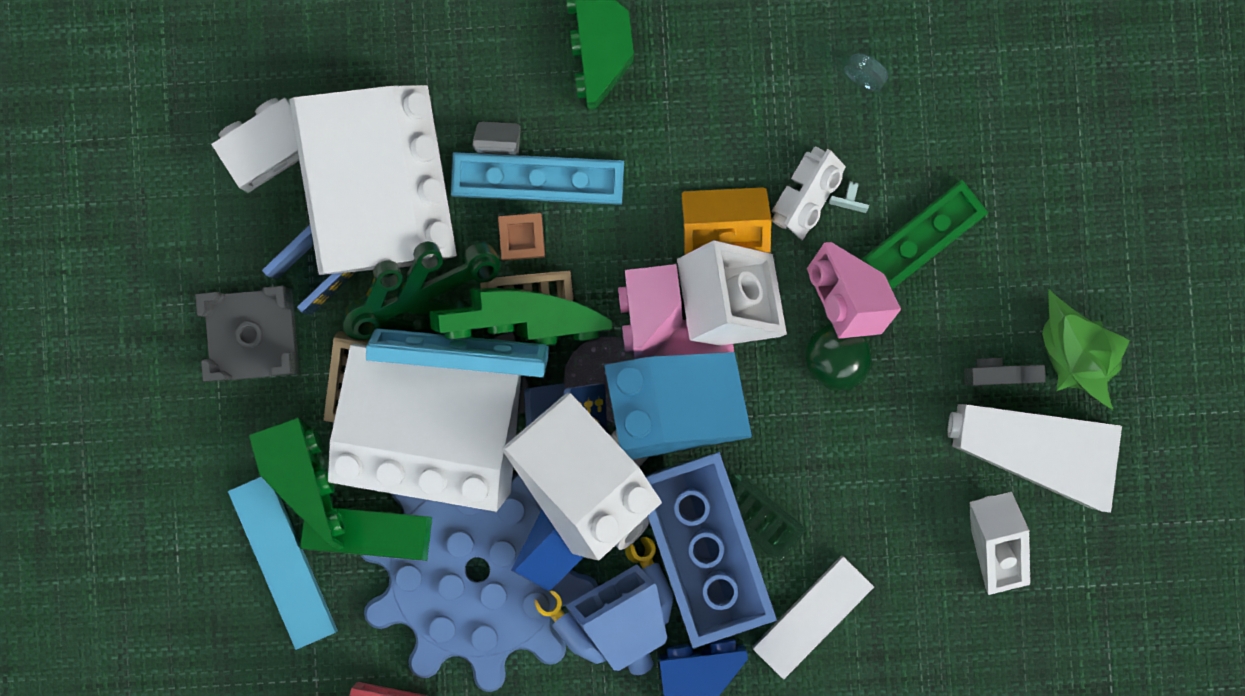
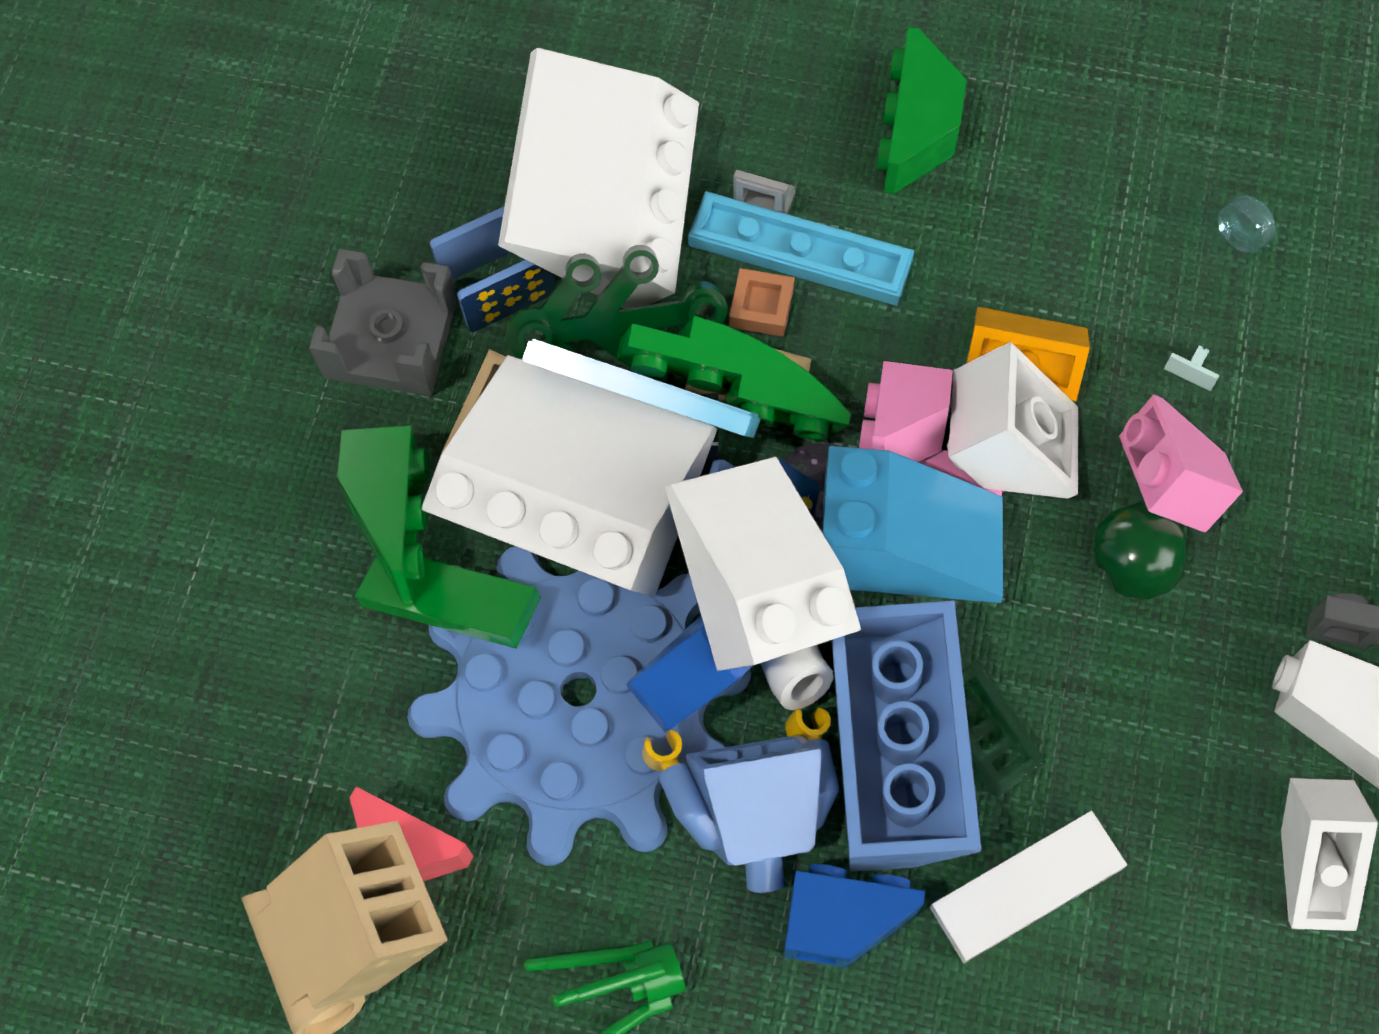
camera: 20 degrees right, 20 degrees down
(260, 146) = (475, 126): white brick -> none
(283, 562) = (326, 614): medium azure tile -> none
(820, 175) = (1155, 333): white hinge -> none
(926, 234) = (1294, 430): green tile -> none

